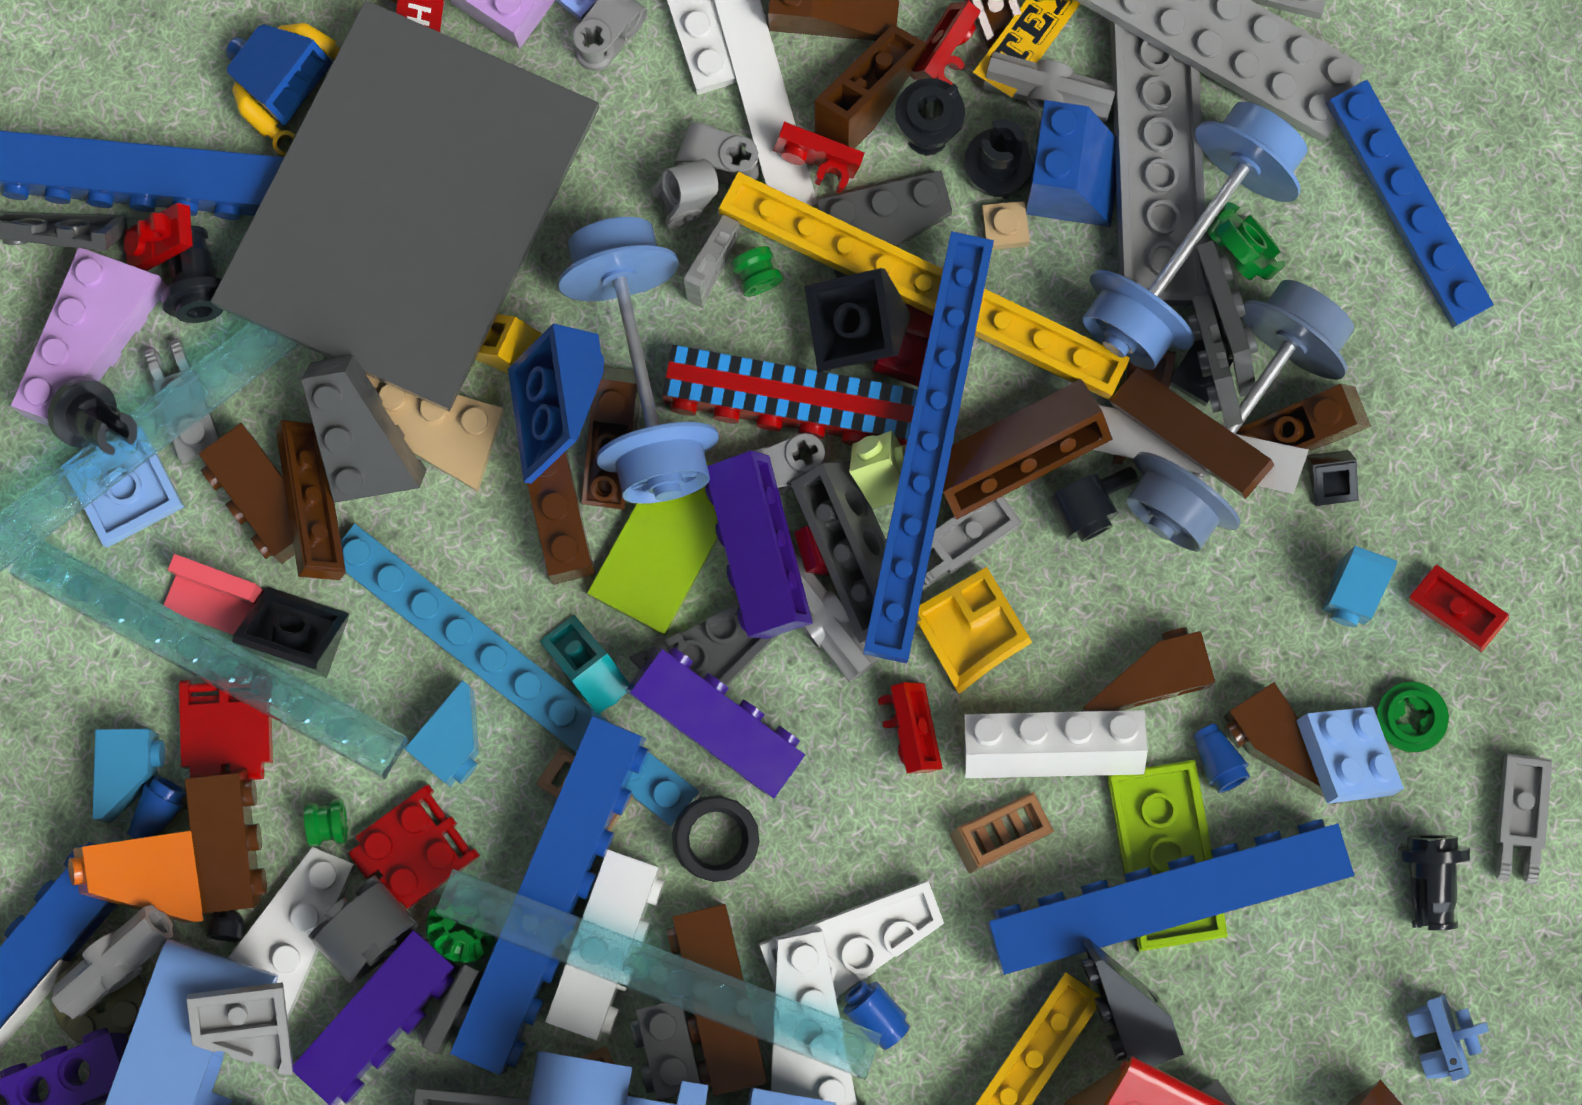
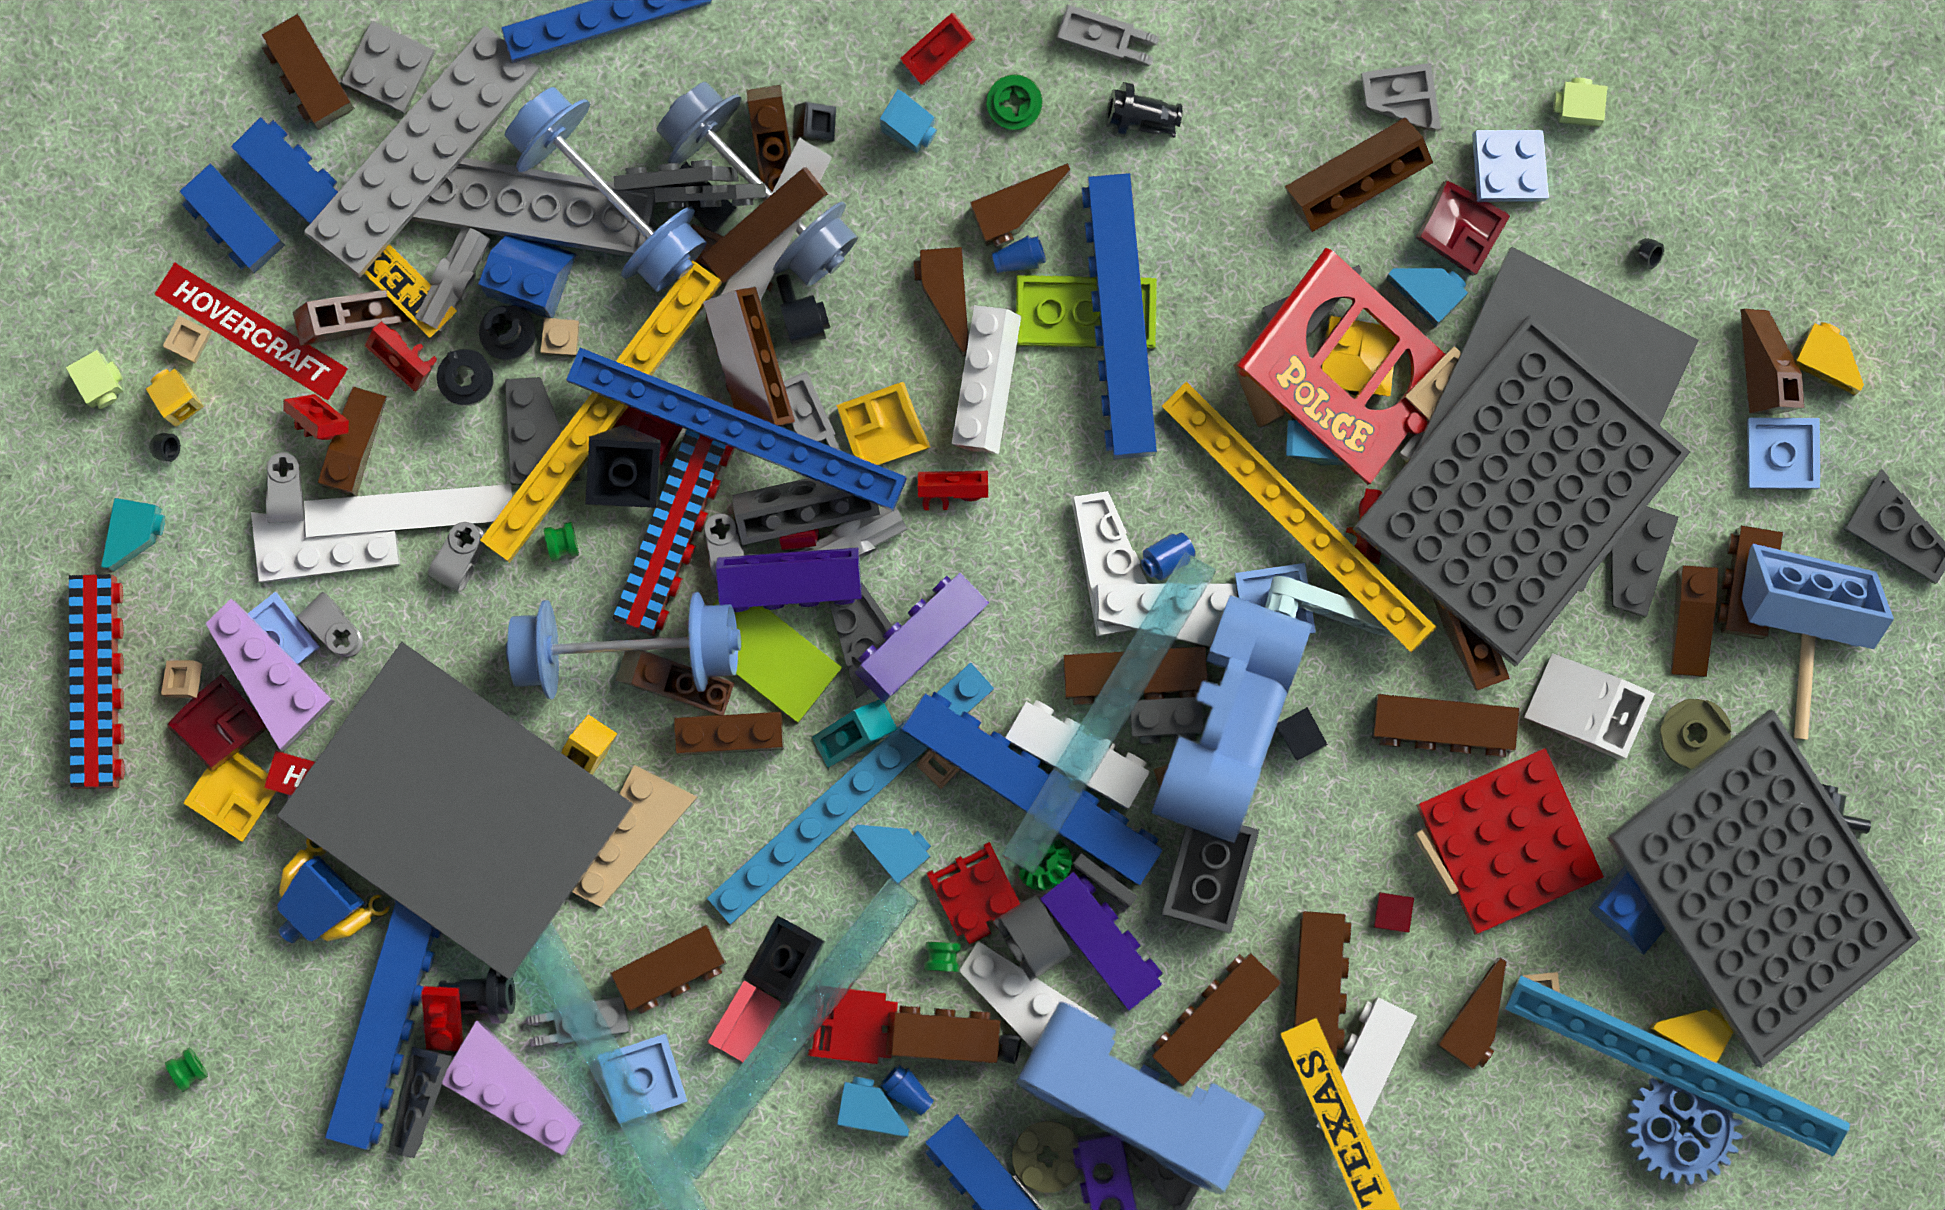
camera: 80 degrees left, 5 degrees up
(85, 412) = (582, 1093): black piece -> none
(112, 962) = (1024, 1132): light grey piece -> none
(142, 874) = (959, 1099): orange slope -> none
(243, 1023) = (1094, 1024): light grey wing -> none
(309, 503) = (684, 926): reddish brown tile -> none
(355, 434) = (642, 879): dark grey wedge -> none
(553, 394) = (645, 714): blue slope -> none
(685, 191) = (486, 585): light grey piece -> none
(710, 261) = (533, 568): light grey wing -> none
(747, 850) = (1029, 635): black tyre -> none
(802, 147) = (466, 485): red plate -> none
(867, 88) = (426, 424): reddish brown slope -> none
(877, 467) = (743, 473): yellowish green brick -> none
(968, 848) = (1052, 462): medium nougat slope -> none
(1134, 1011) = (1202, 359): black slope -> none
(1248, 242) = (617, 149): green plate -> none
(1349, 754) = (1036, 156): light blue plate -> none
(1451, 1058) = (1278, 130): medium blue hips -> none

